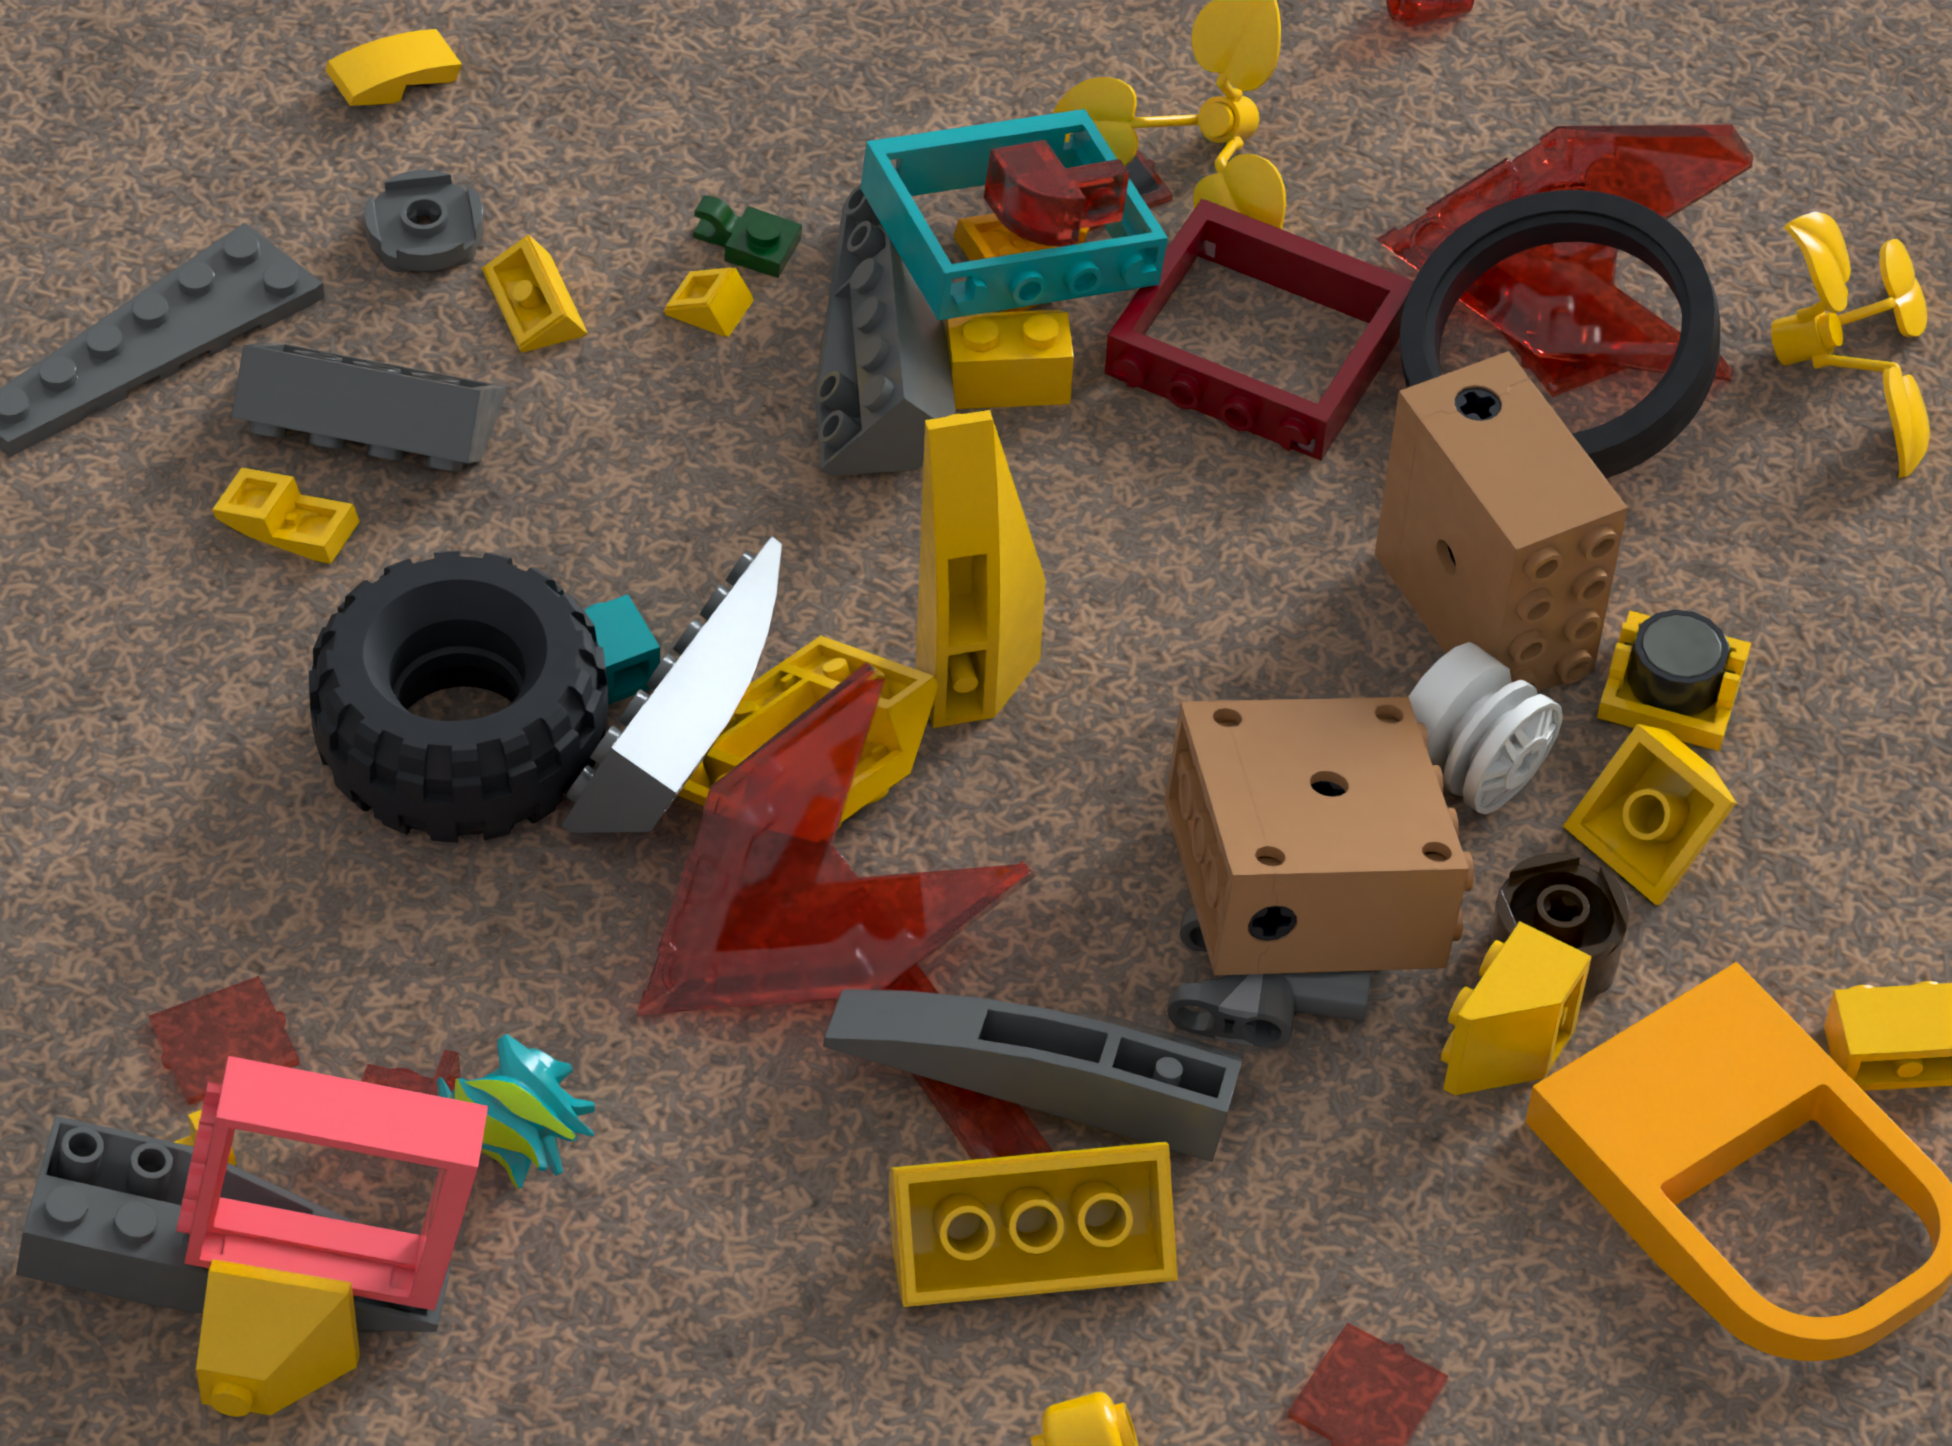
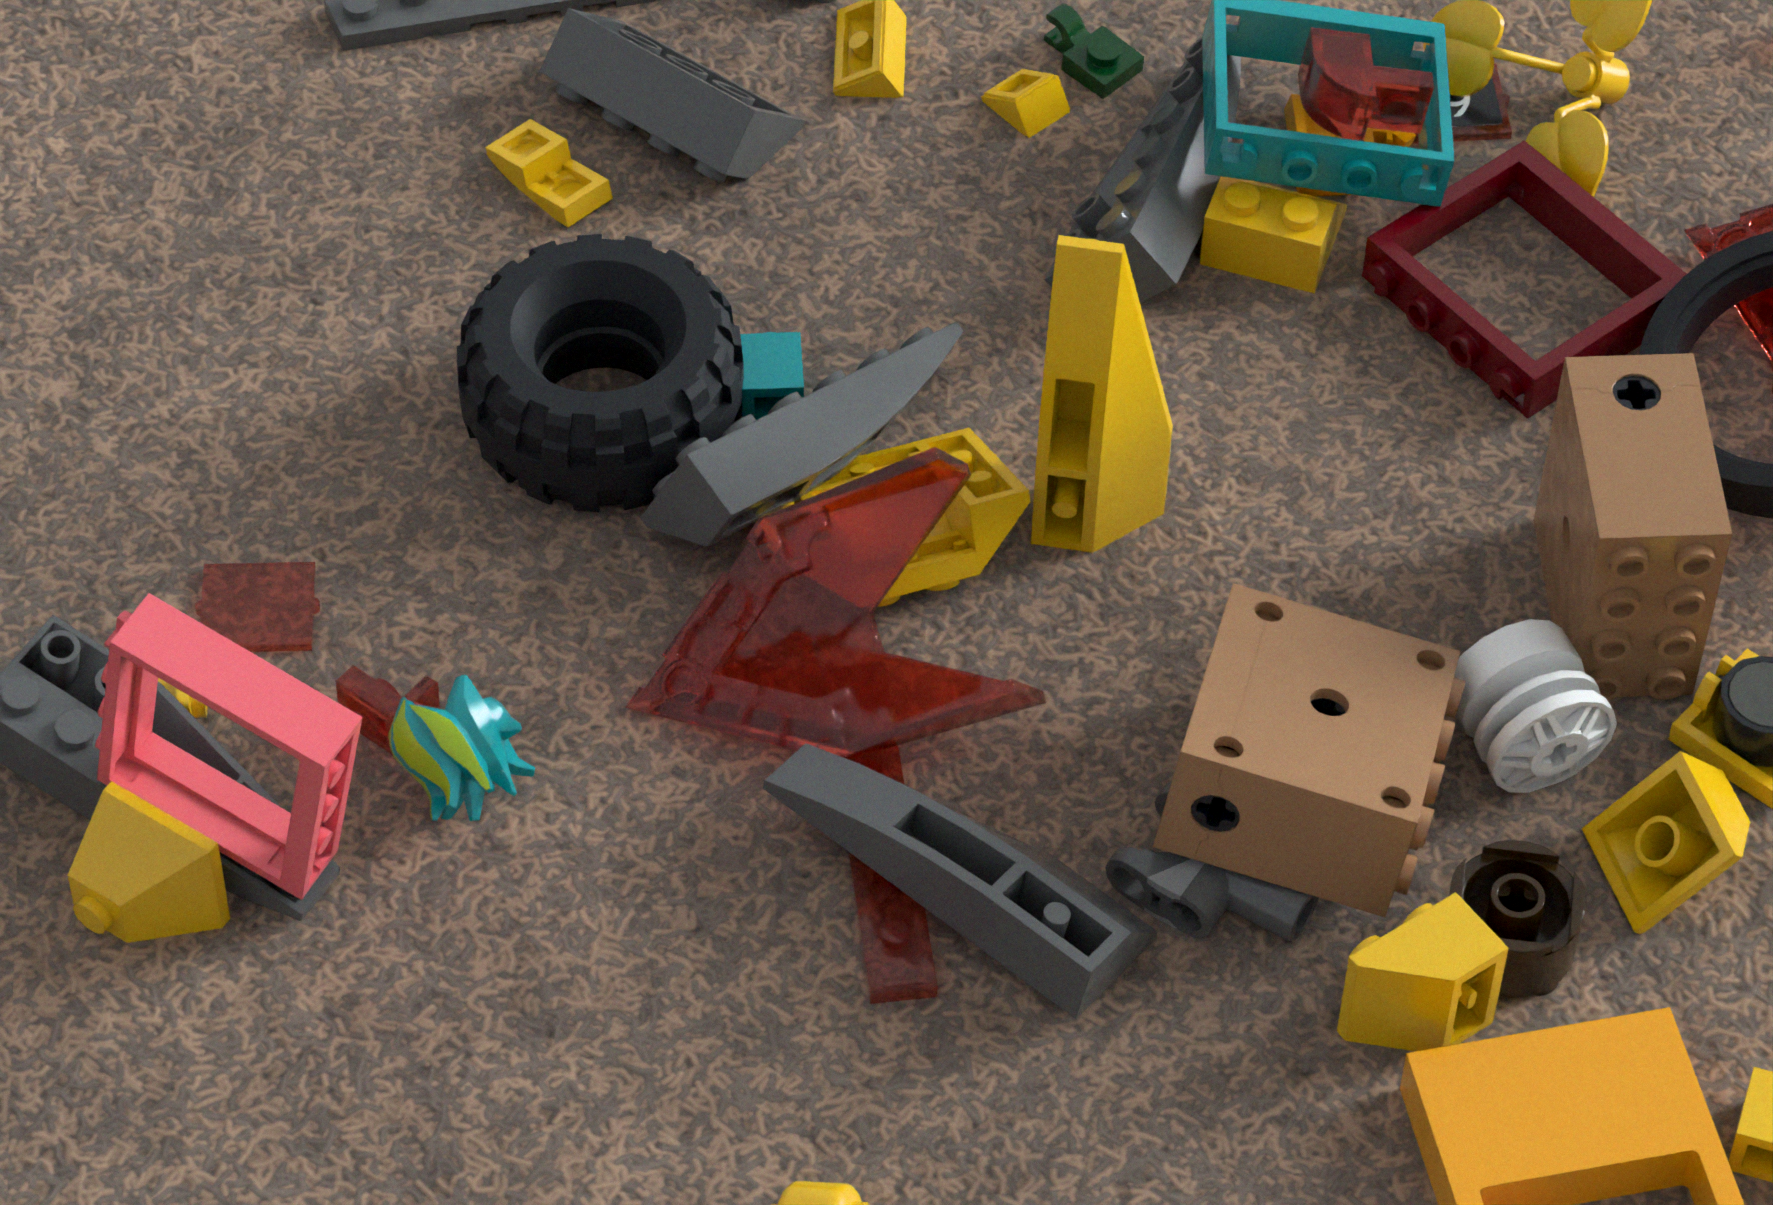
camera: 25 degrees right, 0 degrees up
(1032, 1224) = (871, 1013): yellow brick -> none

